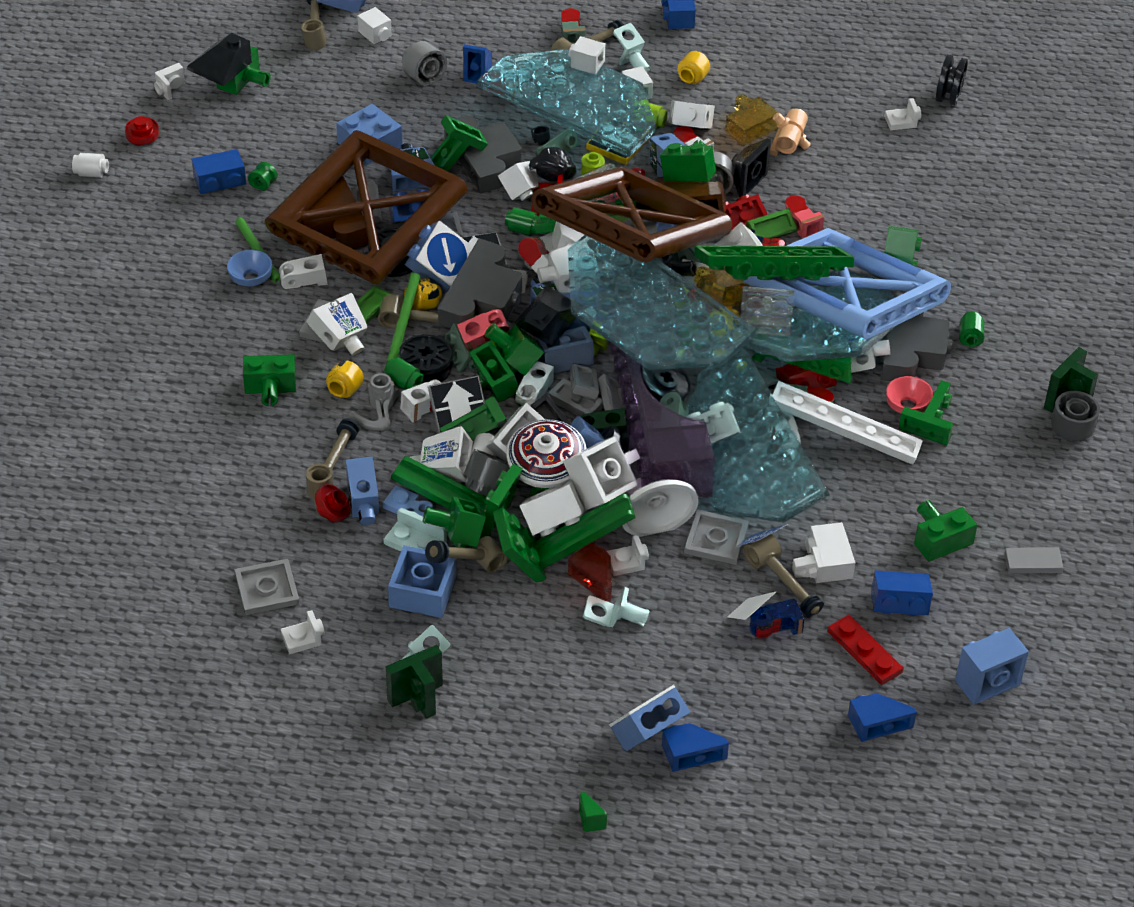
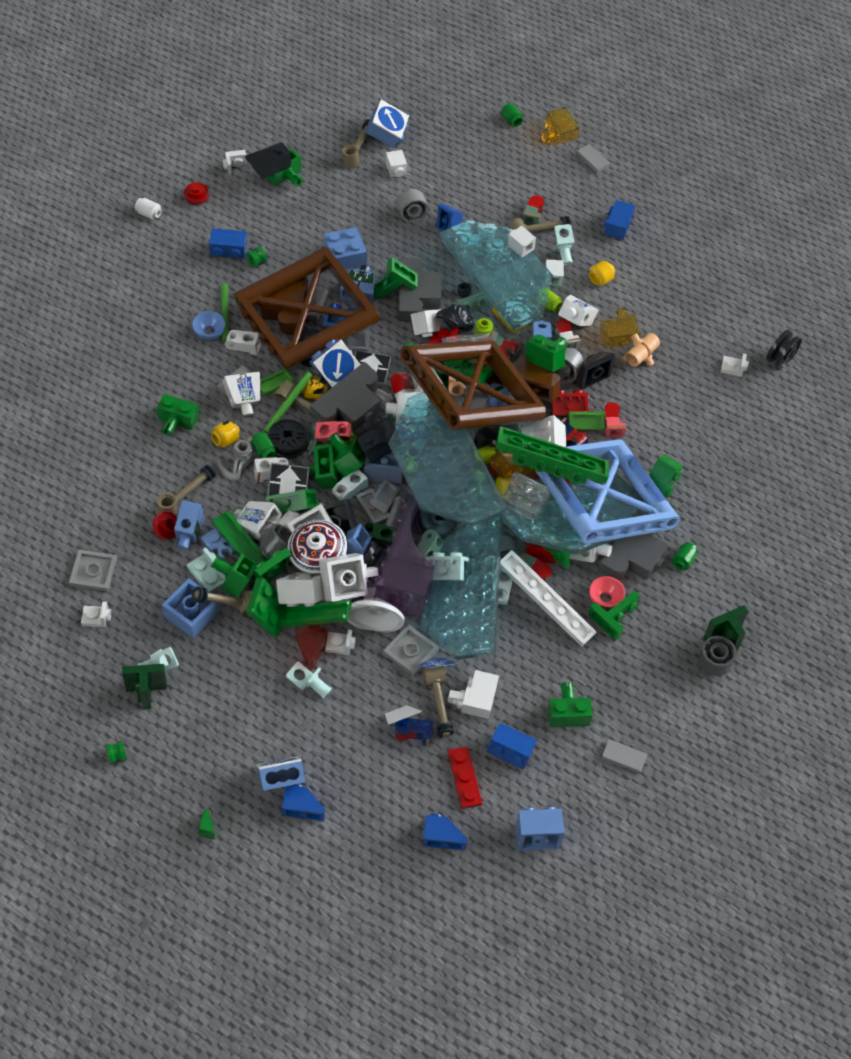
camera: 20 degrees right, 10 degrees up
(425, 775) = (116, 752): none -> green wheel

